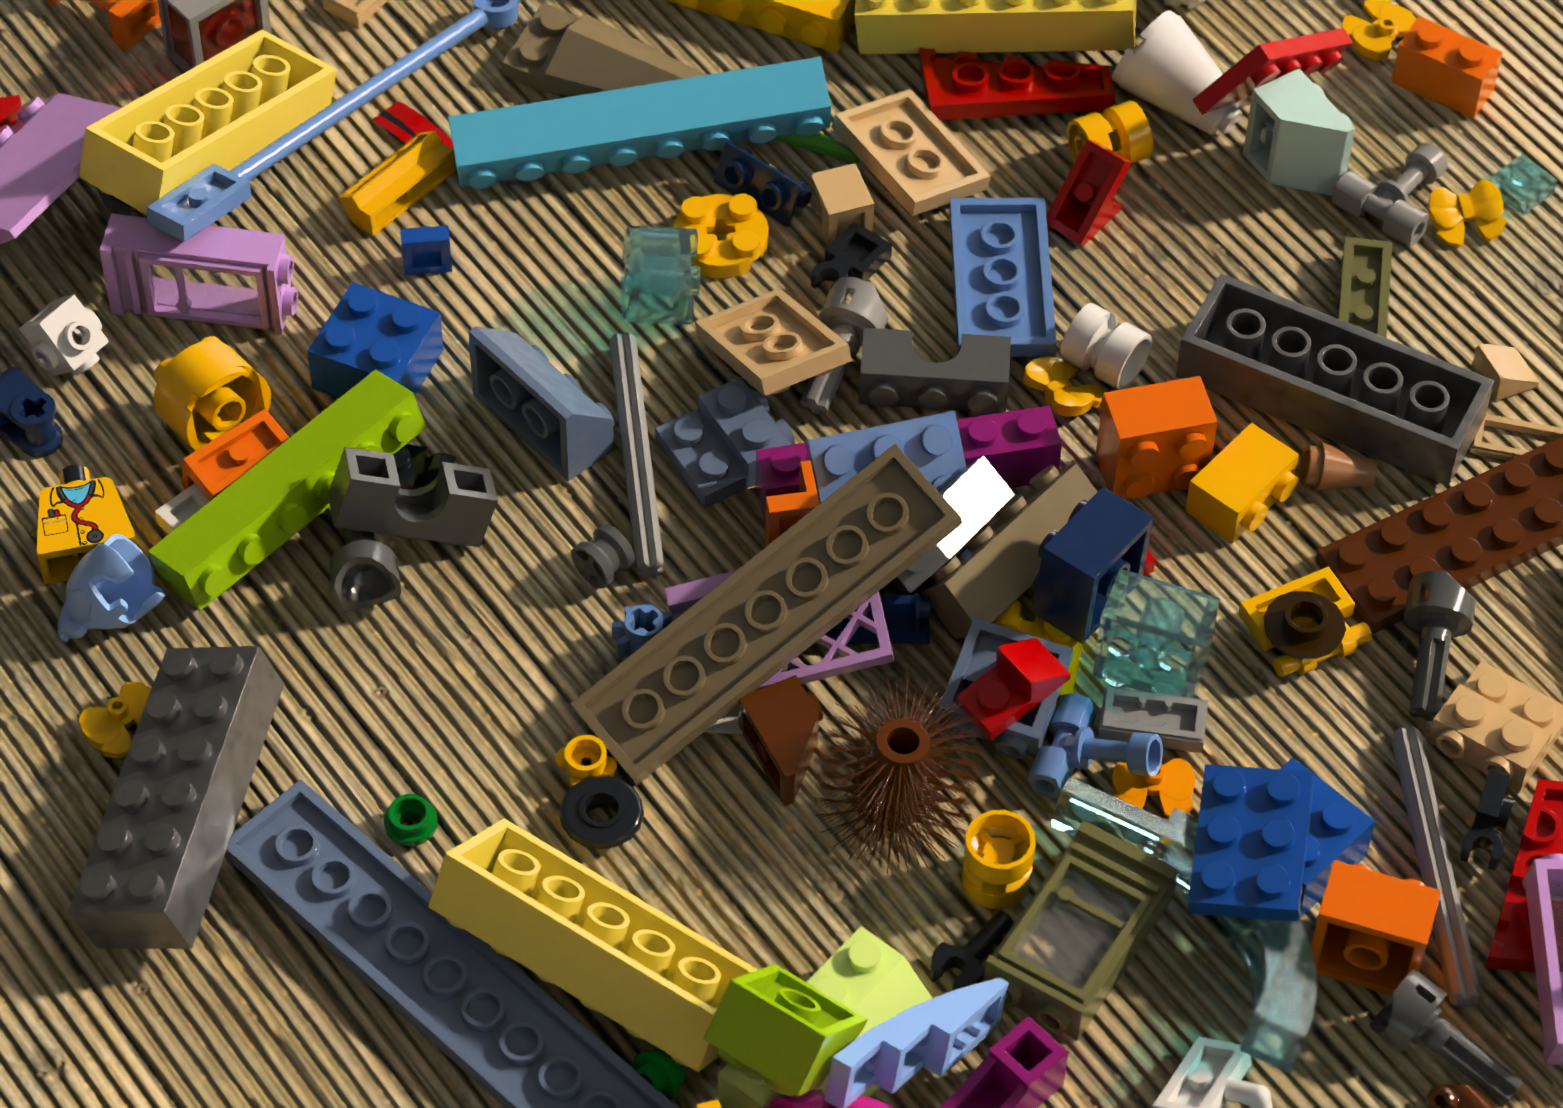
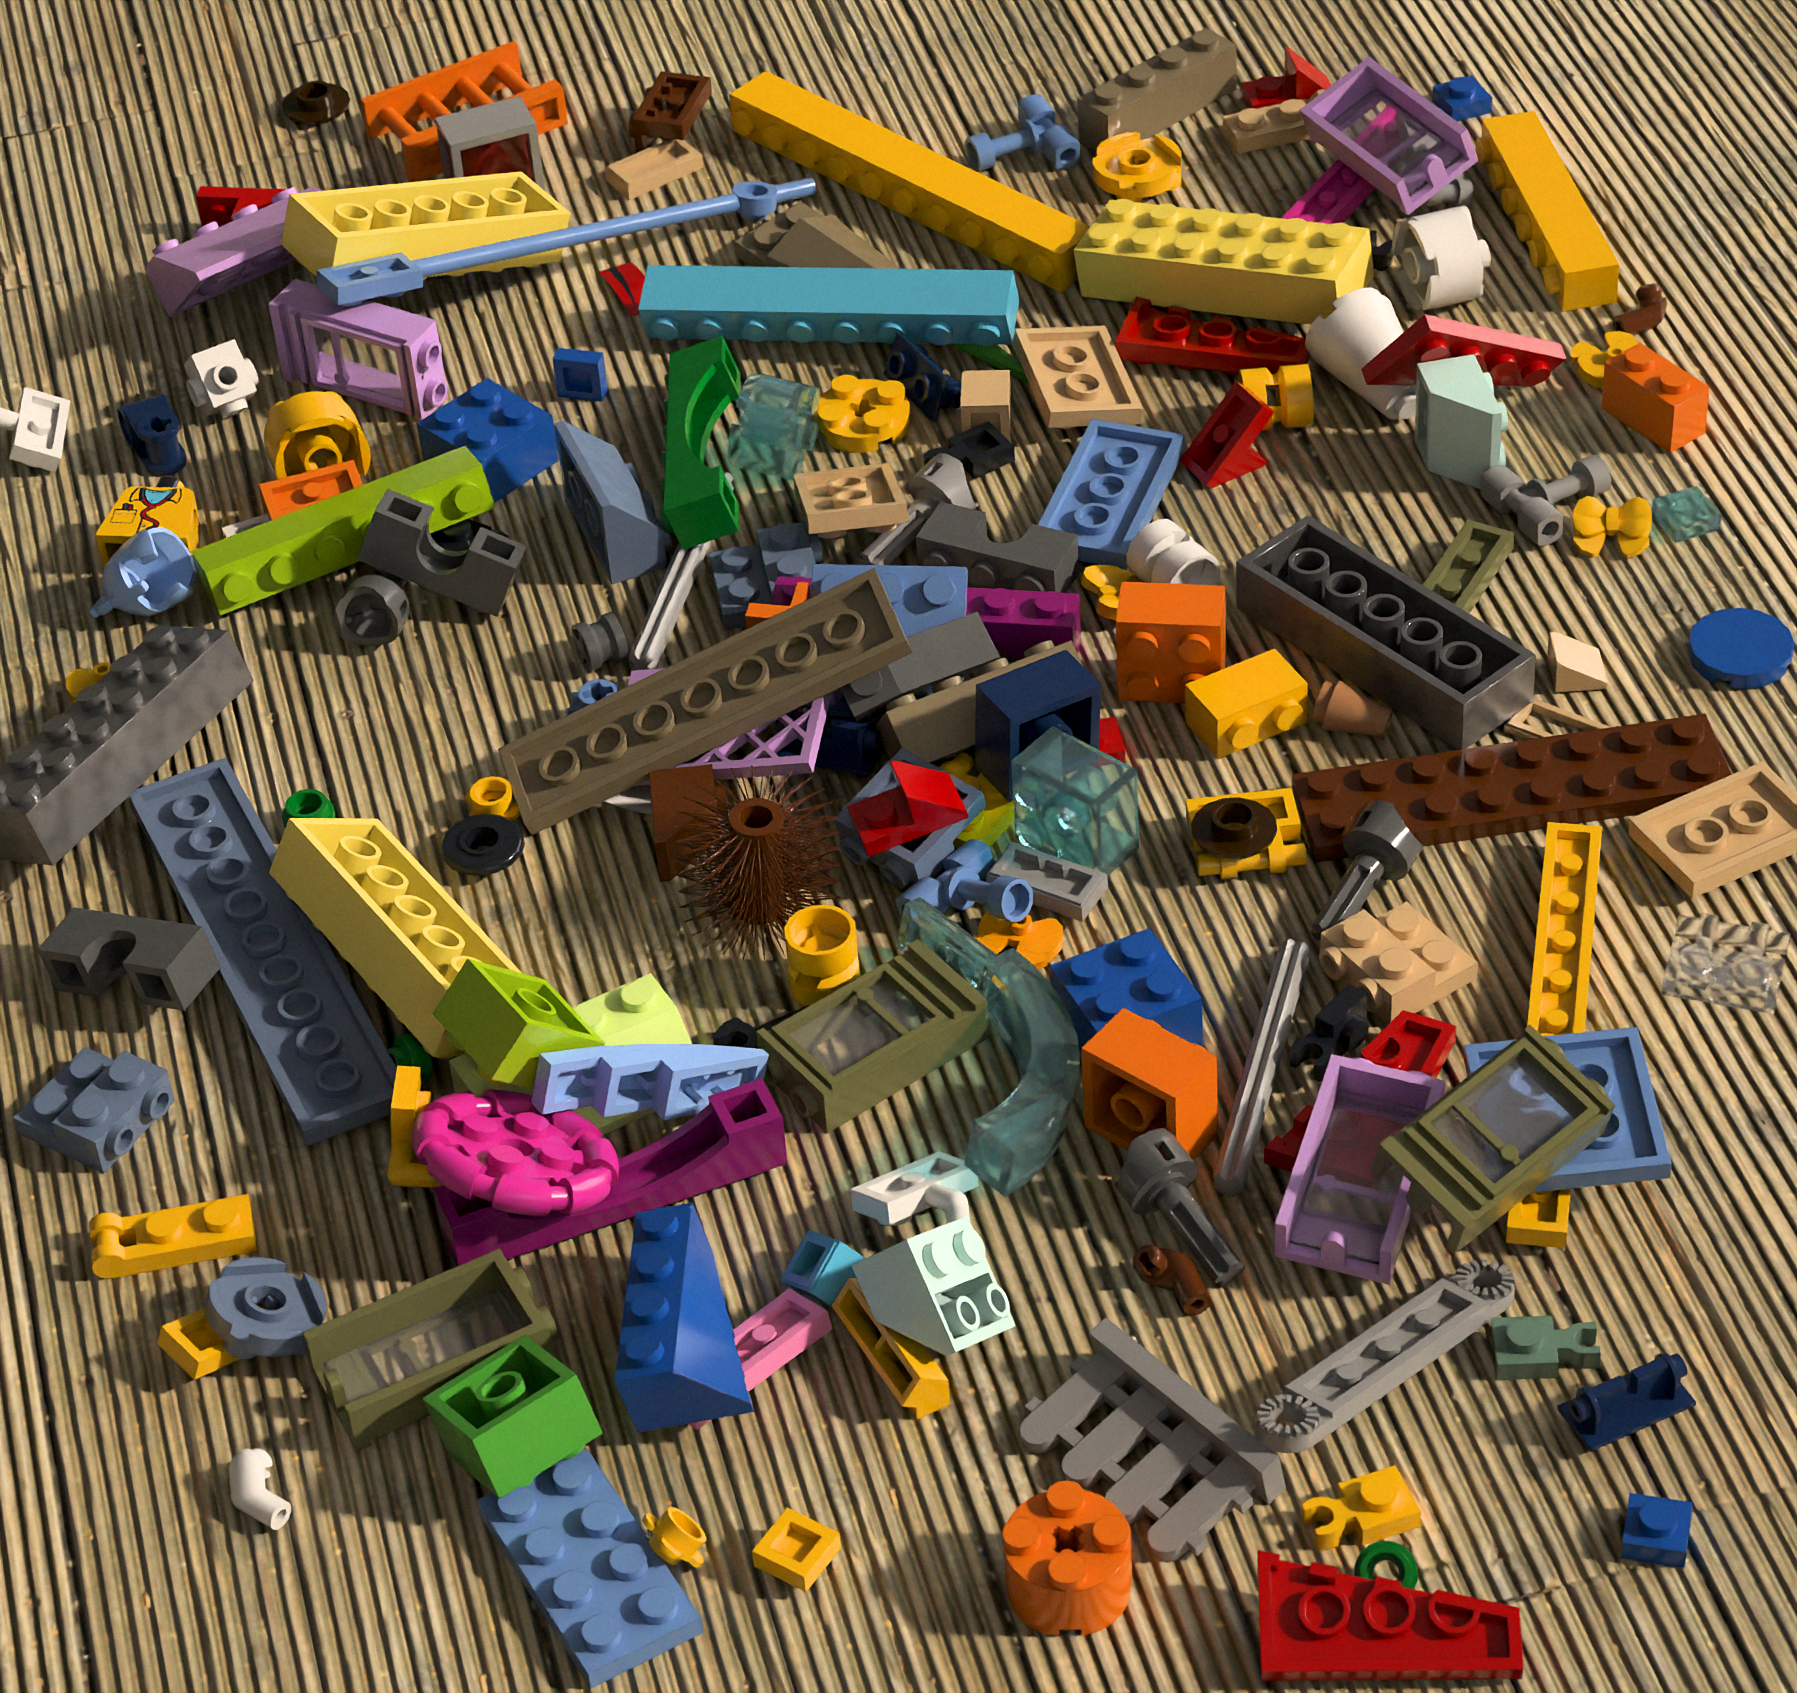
camera: 25 degrees right, 10 degrees down
(287, 1029) = (162, 958): none -> dark grey arch
(398, 182) = (587, 320): yellow piece -> none
(633, 374) = (697, 497): none -> green arch
(1251, 843) = (1060, 984): blue plate -> none

